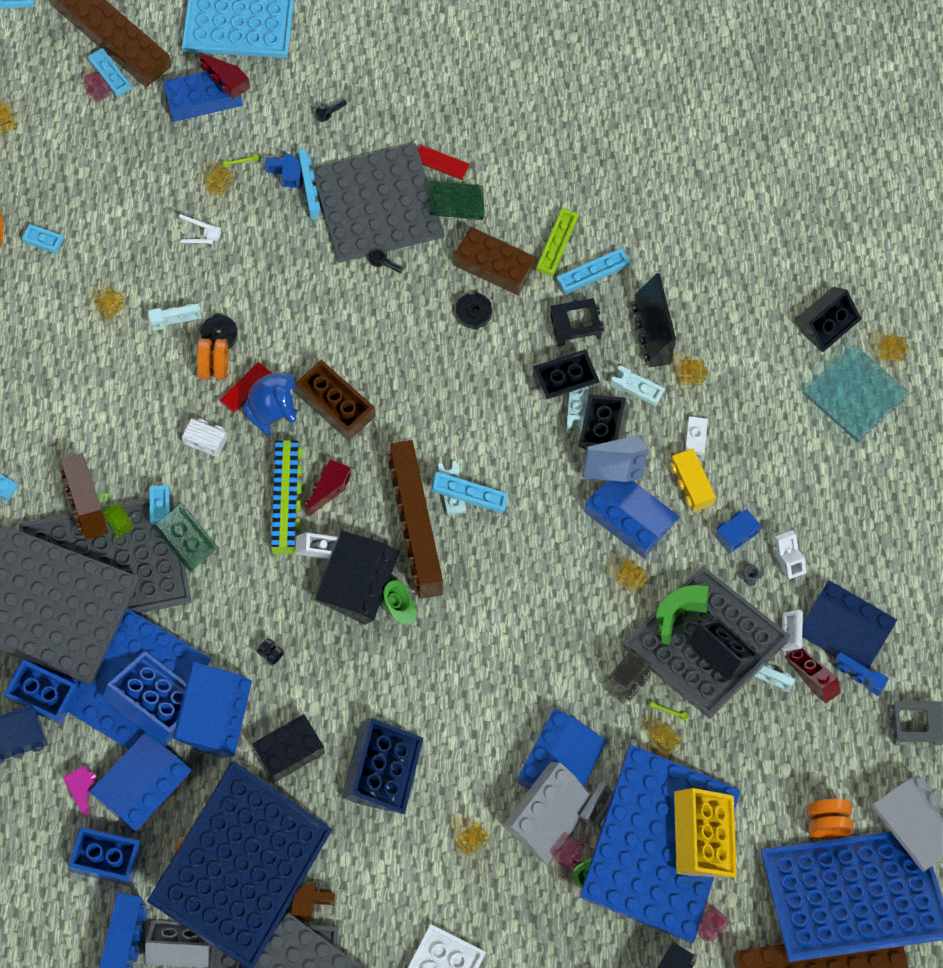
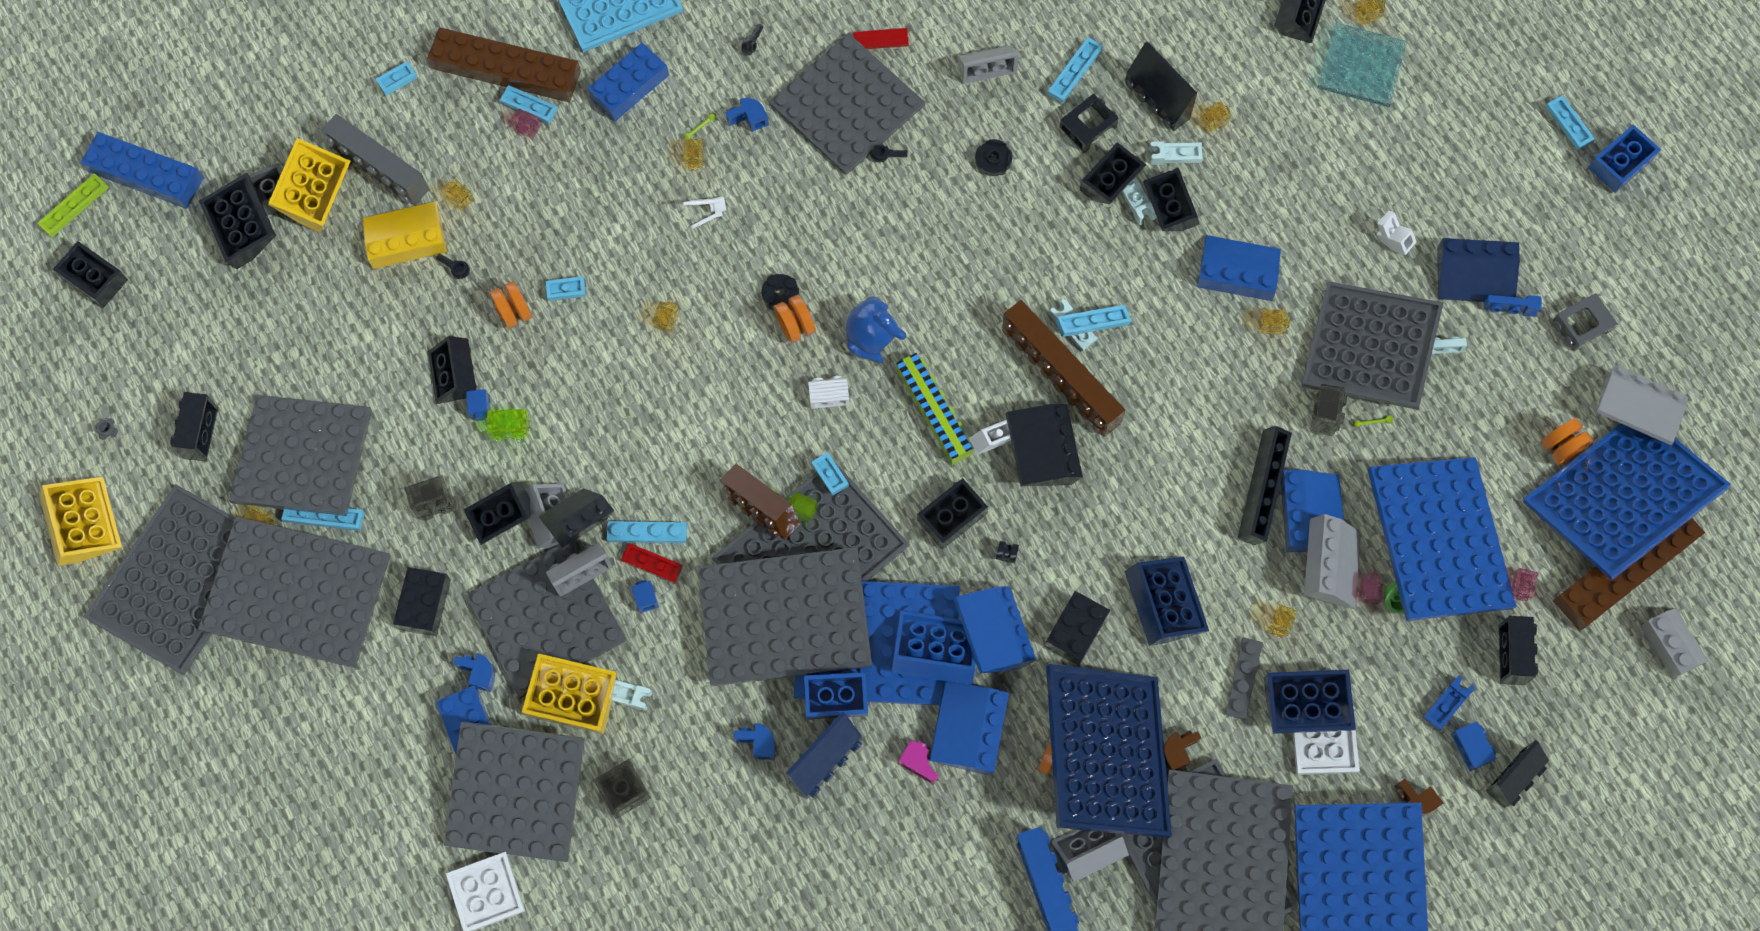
camera: 25 degrees left, 5 degrees up
(105, 856) = (980, 809): blue brick -> none
(173, 315) = (720, 307): light aqua plate -> none
(185, 537) = (871, 490): clear green plate -> none
(228, 76) = (647, 53): dark red slope -> none
(239, 392) = (835, 329): red tile -> none
(242, 593) = (952, 513): none -> black brick
(308, 177) = (777, 119): medium azure plate -> none
(331, 484) = (967, 373): dark red slope -> none
(335, 400) = (925, 299): reddish brown brick -> none
(399, 603) = (1093, 450): bright green piece -> none
(408, 872) = (1244, 678): none -> dark grey plate
(450, 921) = (1309, 701): none -> dark blue slope
(456, 200) = (917, 66): clear green plate -> none
(494, 261) = (985, 104): reddish brown brick -> none
(518, 228) = (988, 64): none -> light grey slope
(530, 713) = (1264, 485): none -> black brick
(557, 242) = (1028, 60): lime plate -> none
(597, 805) = (1367, 534): light grey plate -> none
(616, 460) = (1205, 226): sand blue slope -> none
(665, 738) = (1387, 447): clear yellow brick -> none
(678, 602) = (1334, 318): bright green arch -> none
(692, 480) = (1273, 211): yellow brick -> none
(696, 435) = (1251, 171): white plate -> none
(705, 833) = (1474, 510): yellow slope -> none
(723, 649) = (1396, 343): black slope -> none
(737, 531) = (1338, 236): blue brick -> none
(751, 569) = (1370, 263): dark grey plate -> none
(792, 624) = (1432, 291): white plate -> none
(814, 674) = (1477, 326): dark red slope -> none

